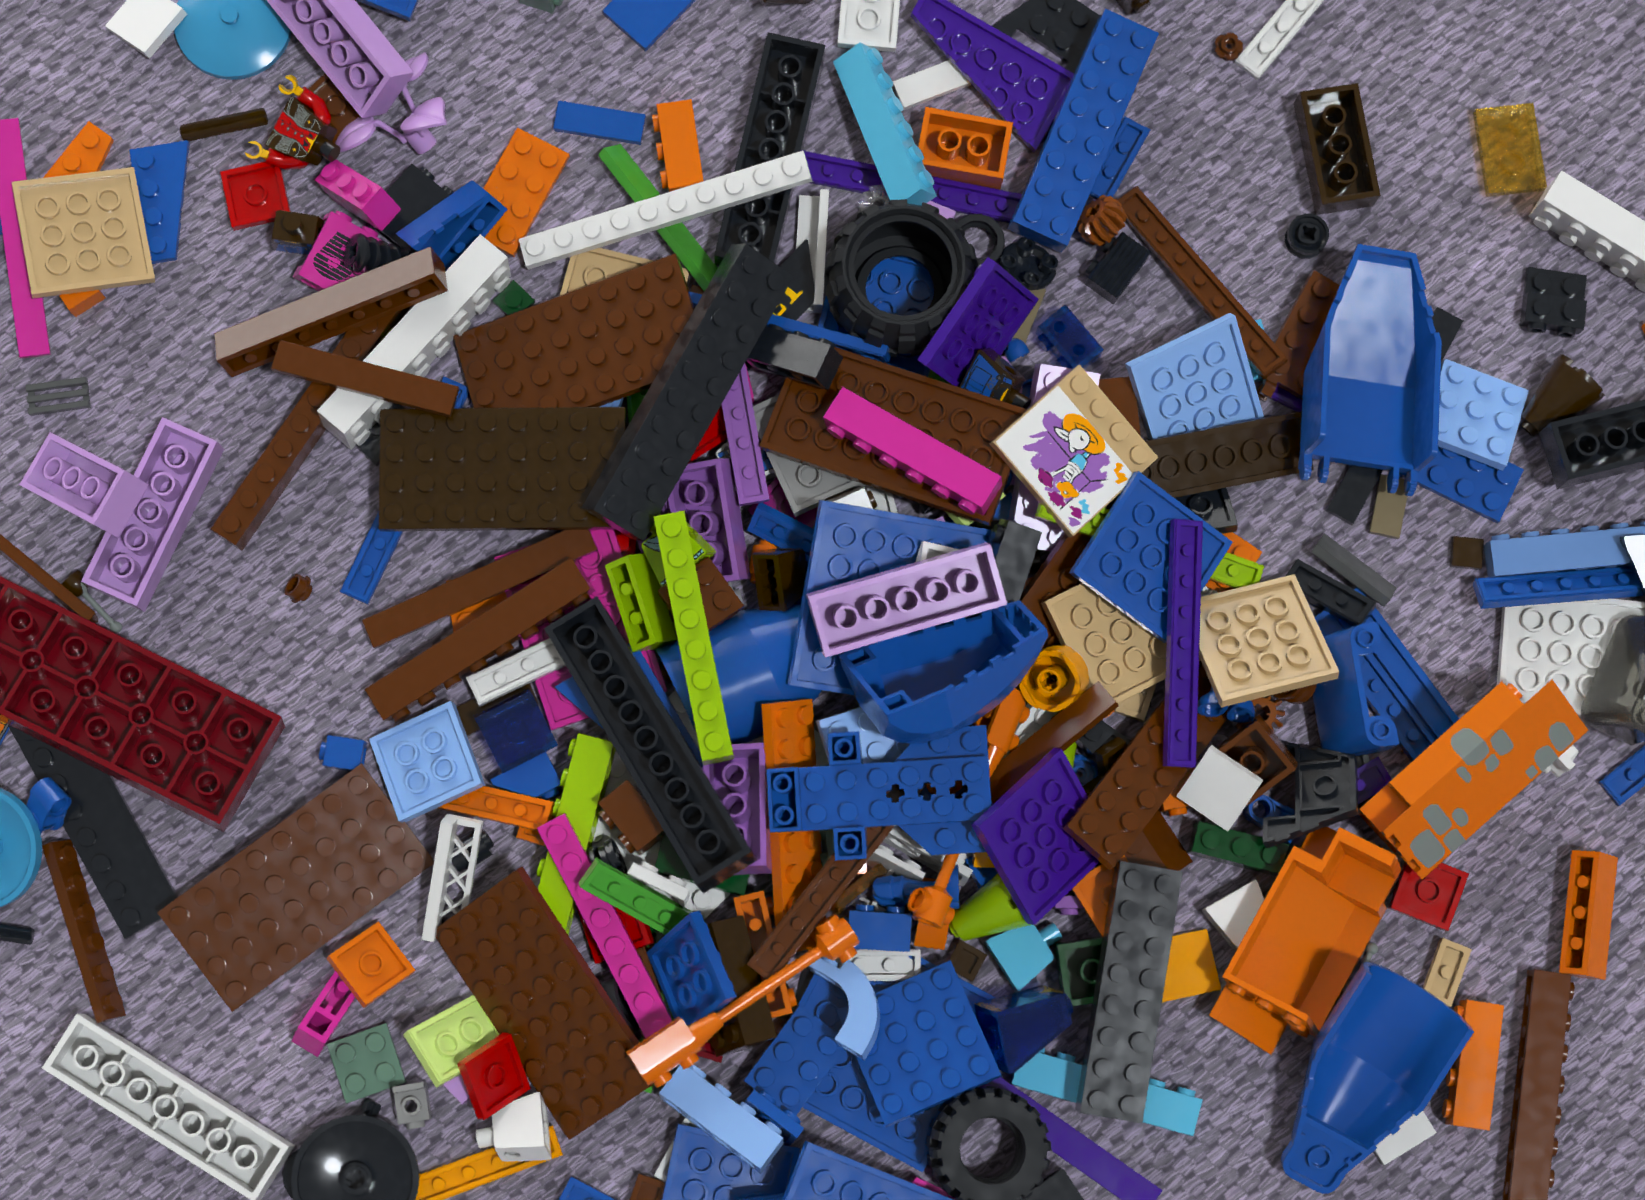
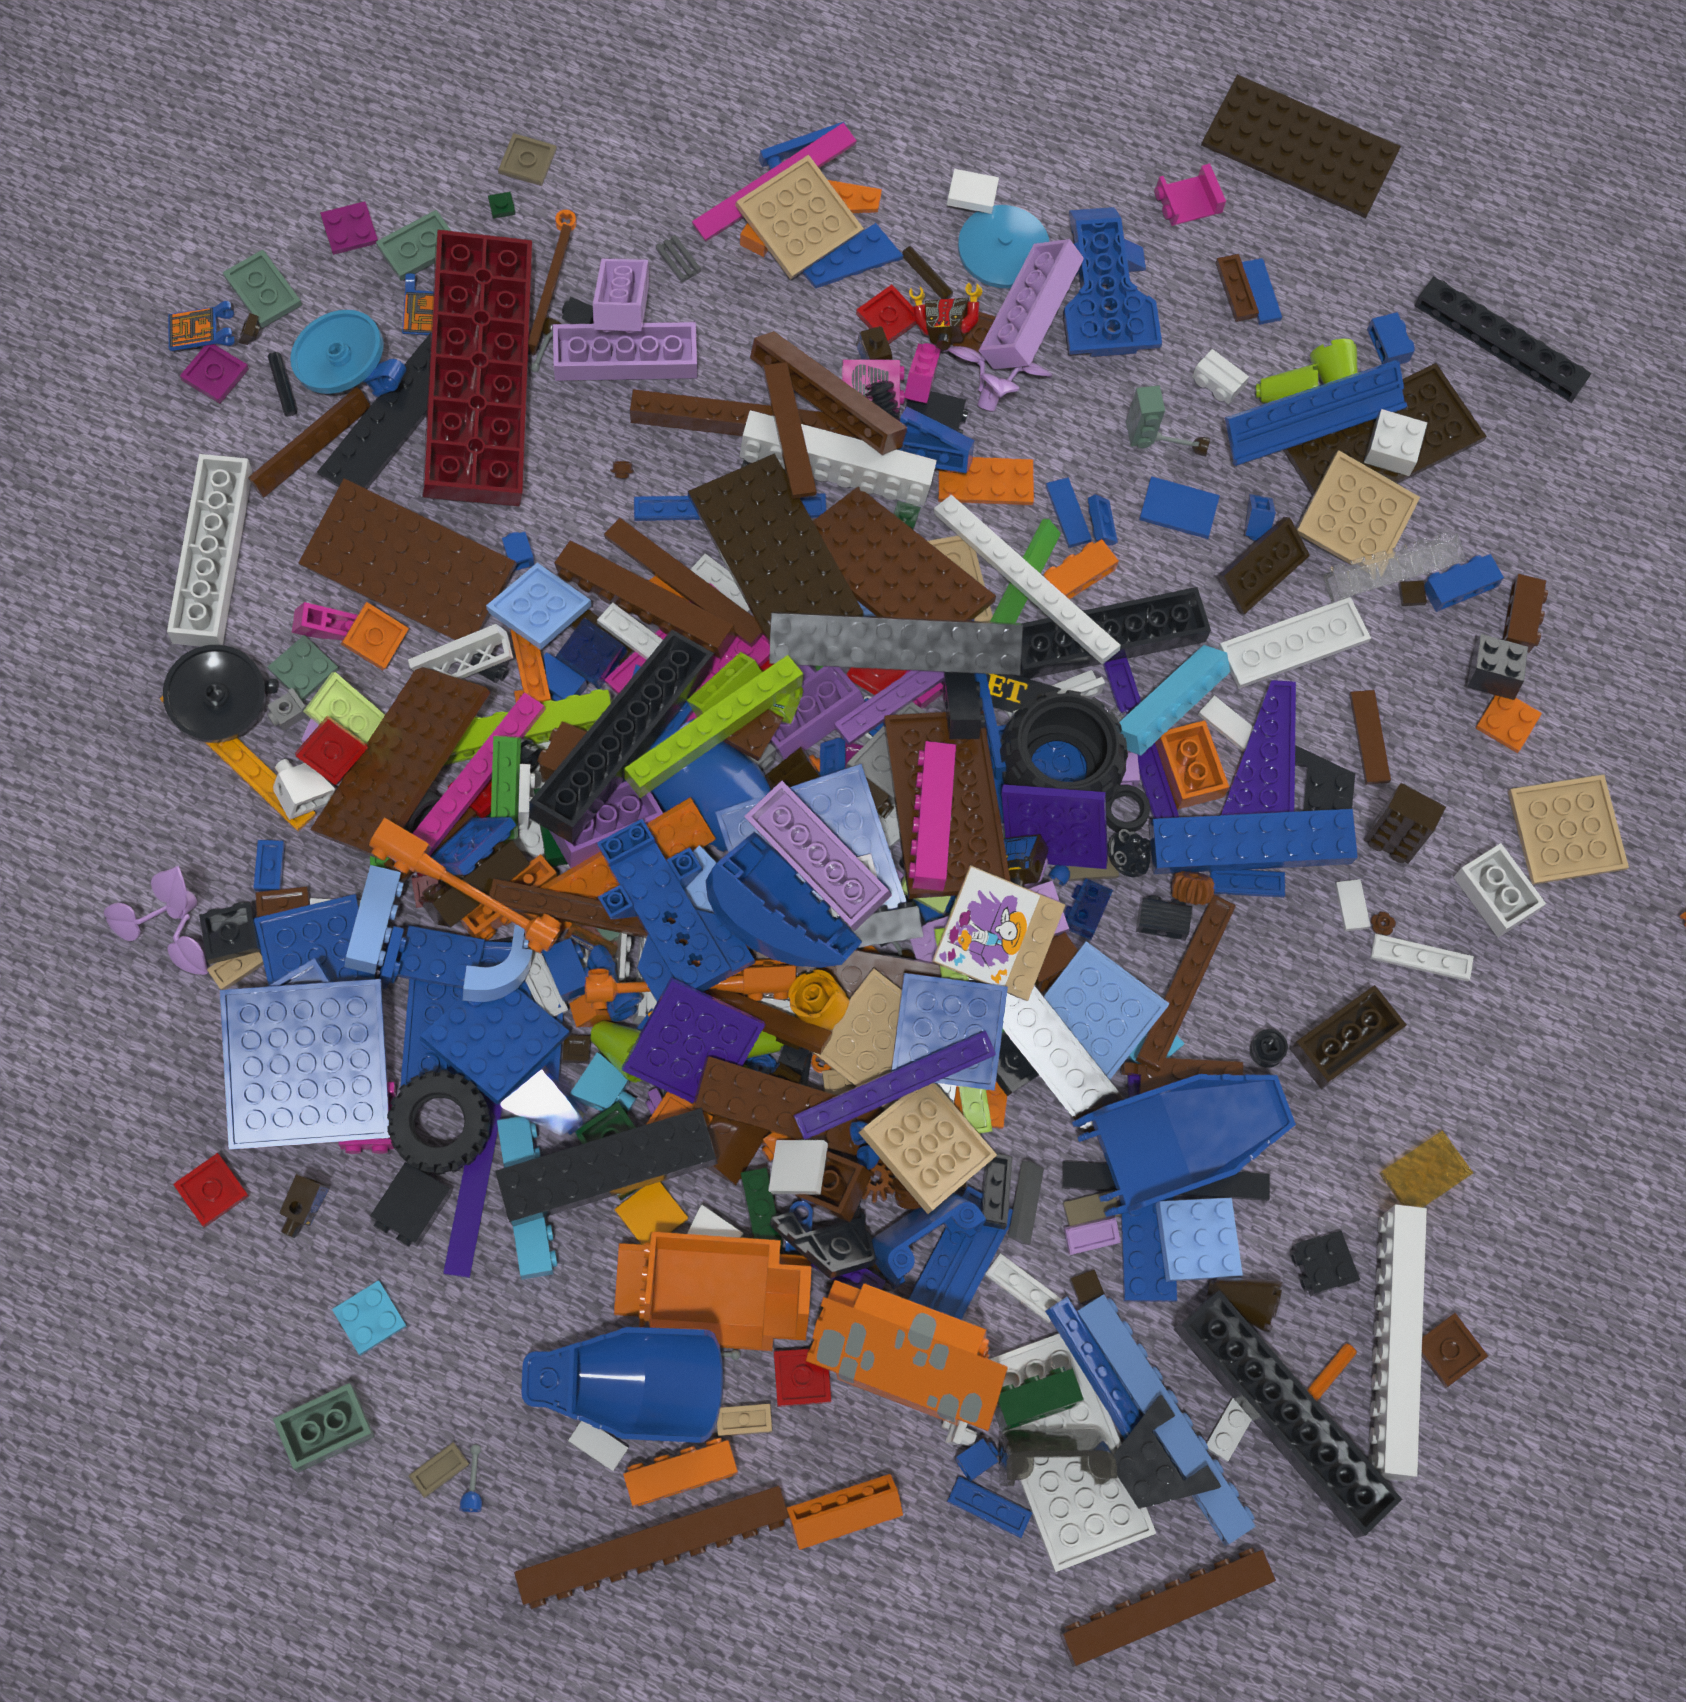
camera: 60 degrees right, 10 degrees down
(76, 542) = (577, 312): none -> black brick
(489, 544) = (720, 578): none -> white plate
(621, 88) = (1102, 520): none -> blue plate
(1193, 66) = (1352, 905): none -> white tile
(1417, 521) = (1092, 1235): none -> lavender tile
(1438, 617) = (1022, 1286): none -> white tile
(1575, 658) = (1037, 1398): none -> dark green brick
(1594, 754) = (977, 1459): none -> blue brick

